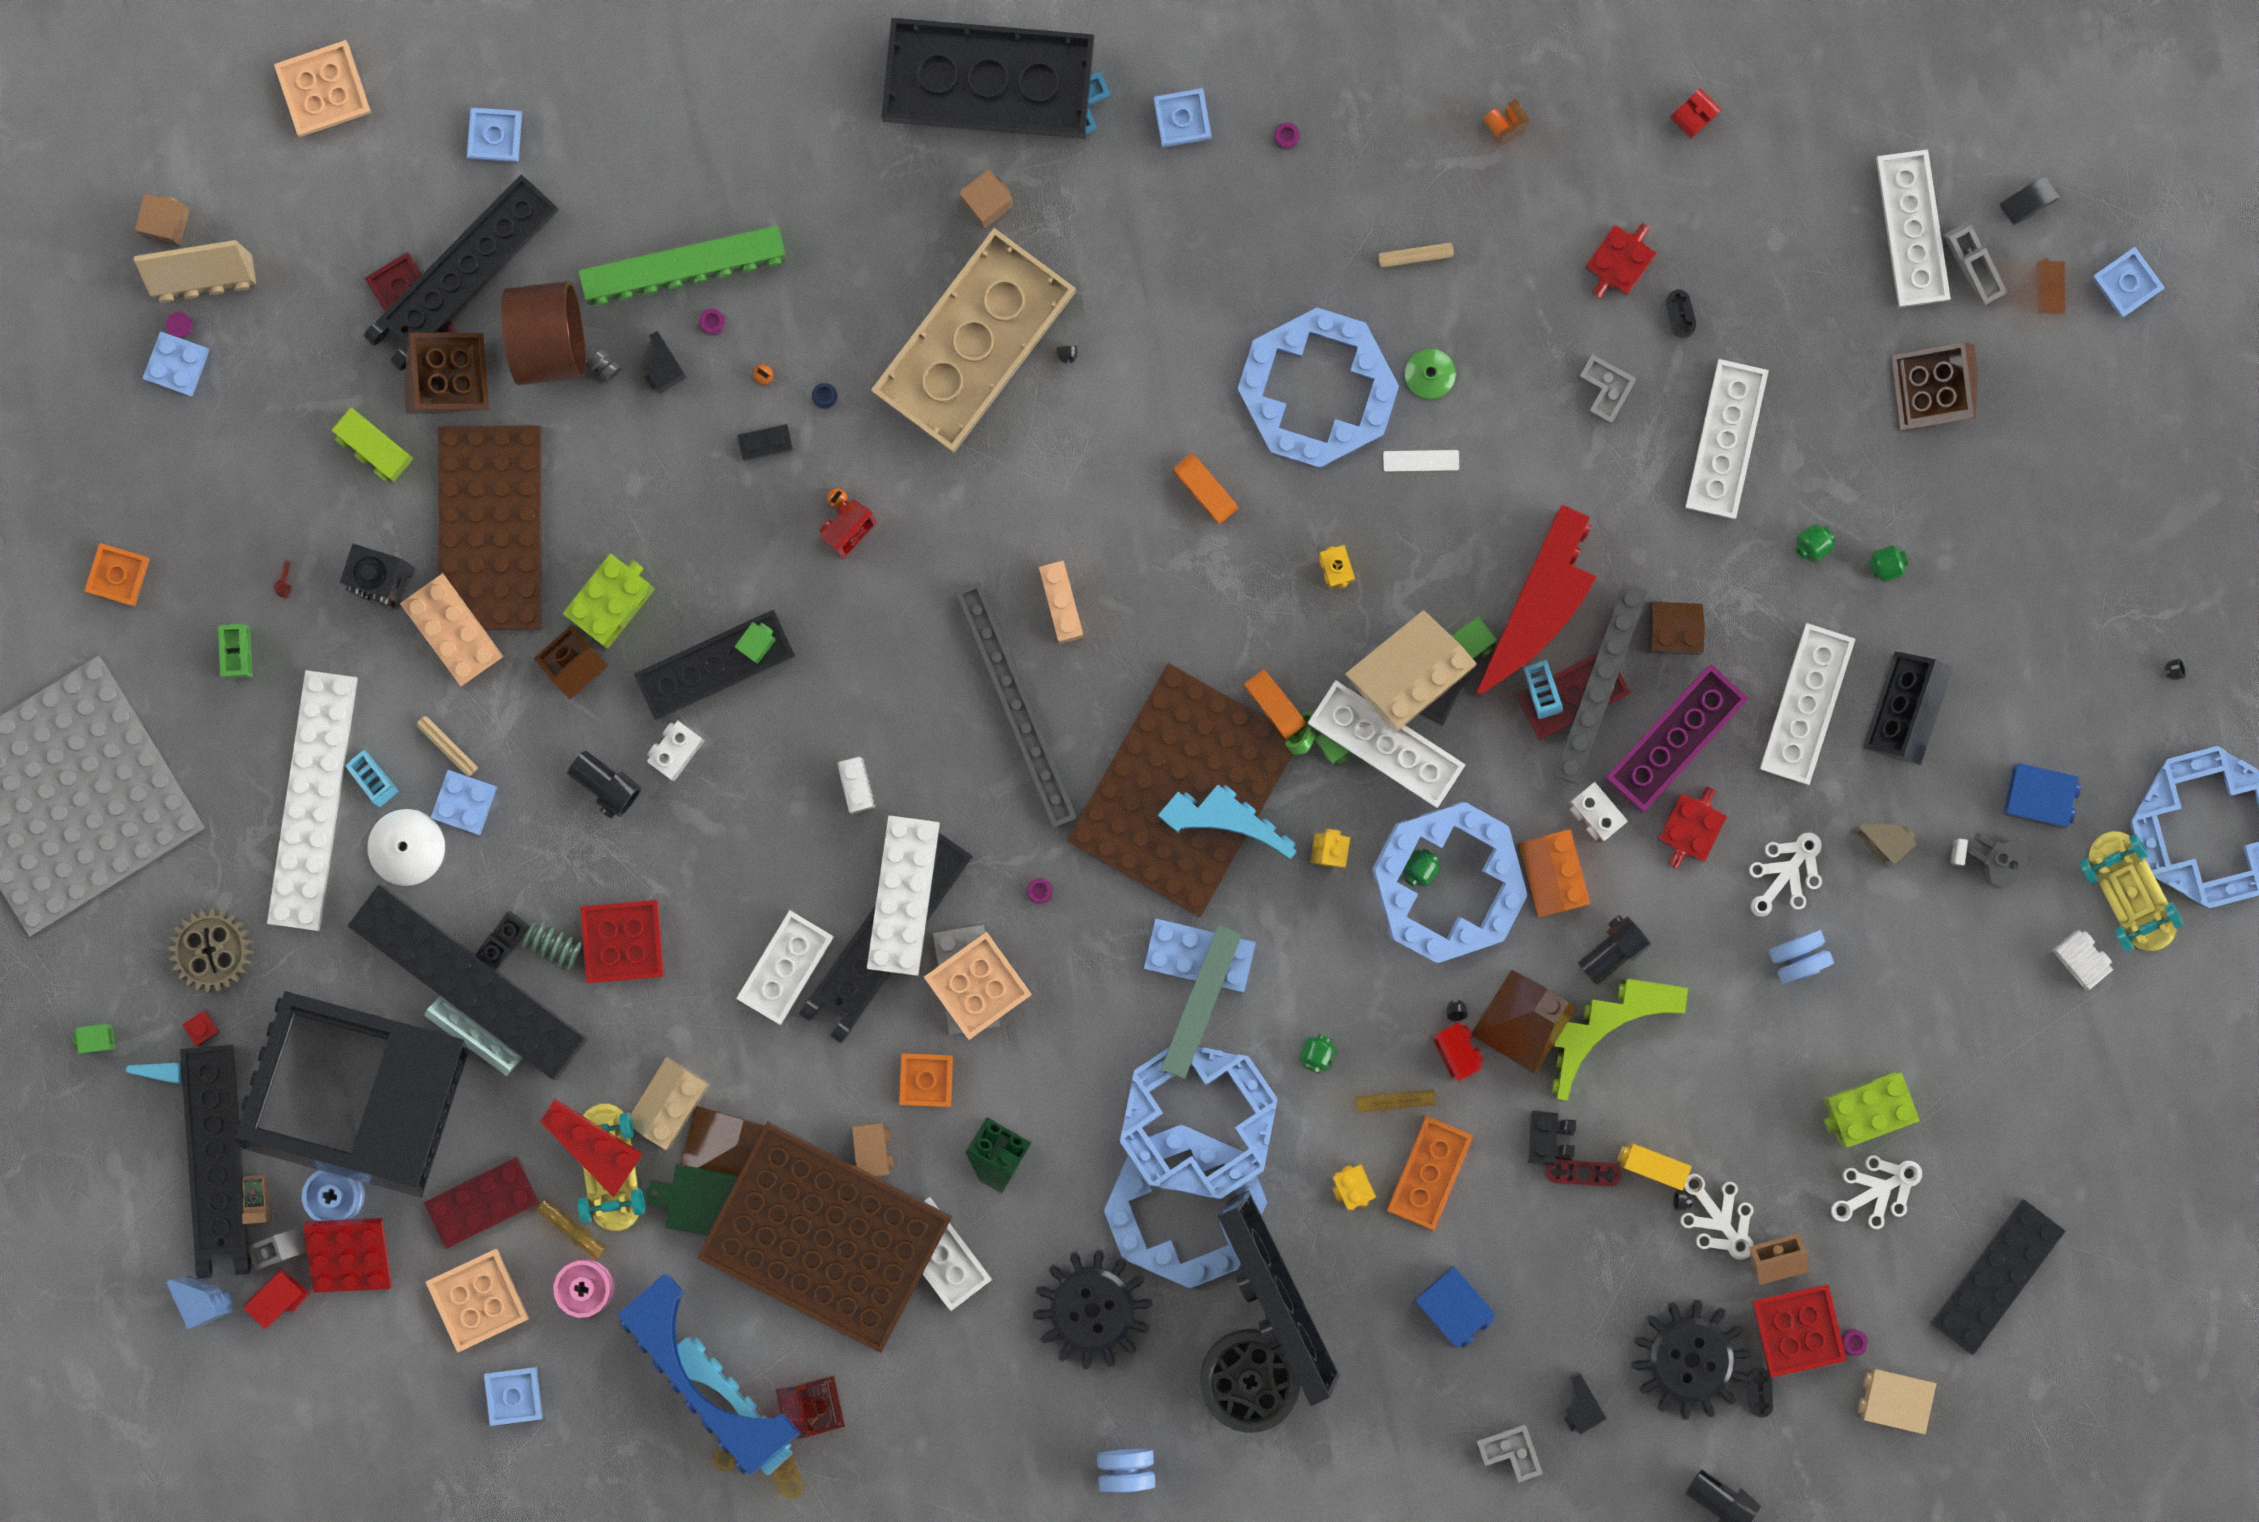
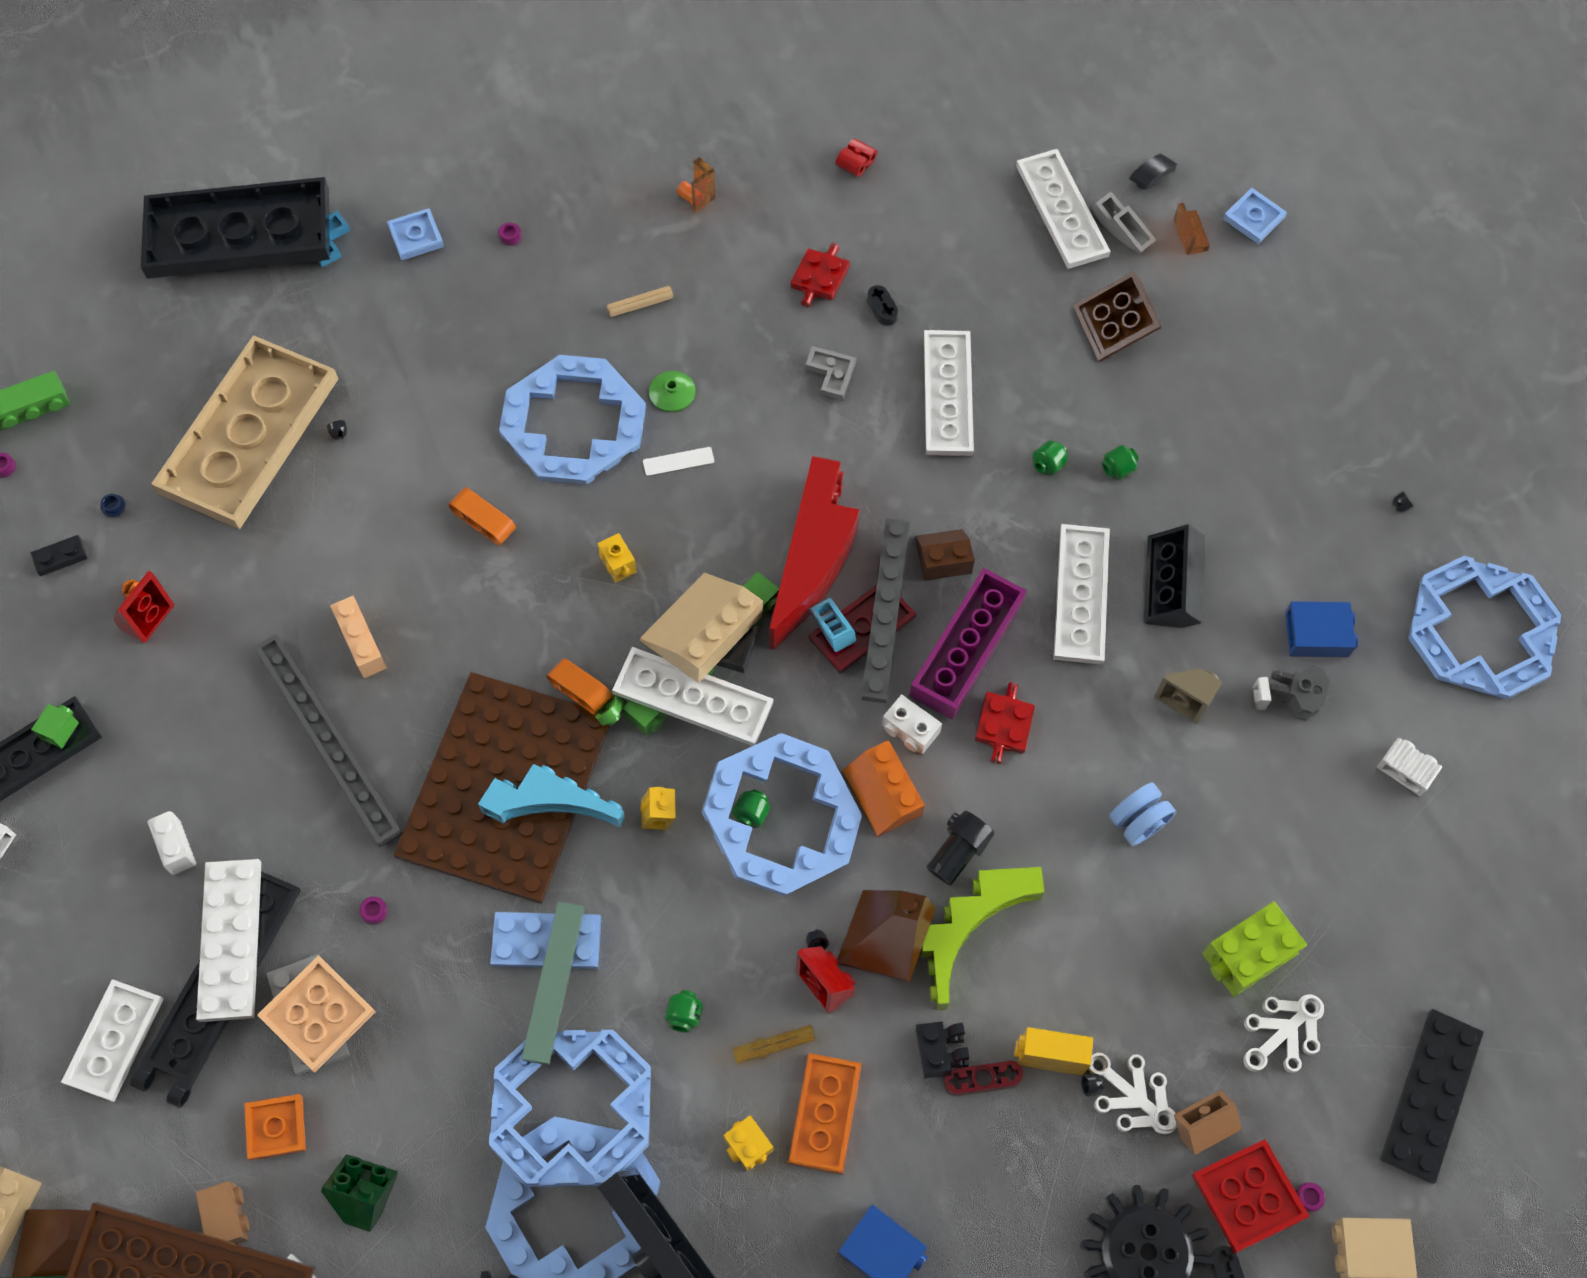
camera: 20 degrees left, 20 degrees down
(759, 379) = (51, 503): orange hinge -> none
(986, 198) = (246, 317): medium nougat head -> none
(1788, 871) = (1106, 742): white plant -> none
(2132, 891) = (1434, 696): light yellow piece -> none

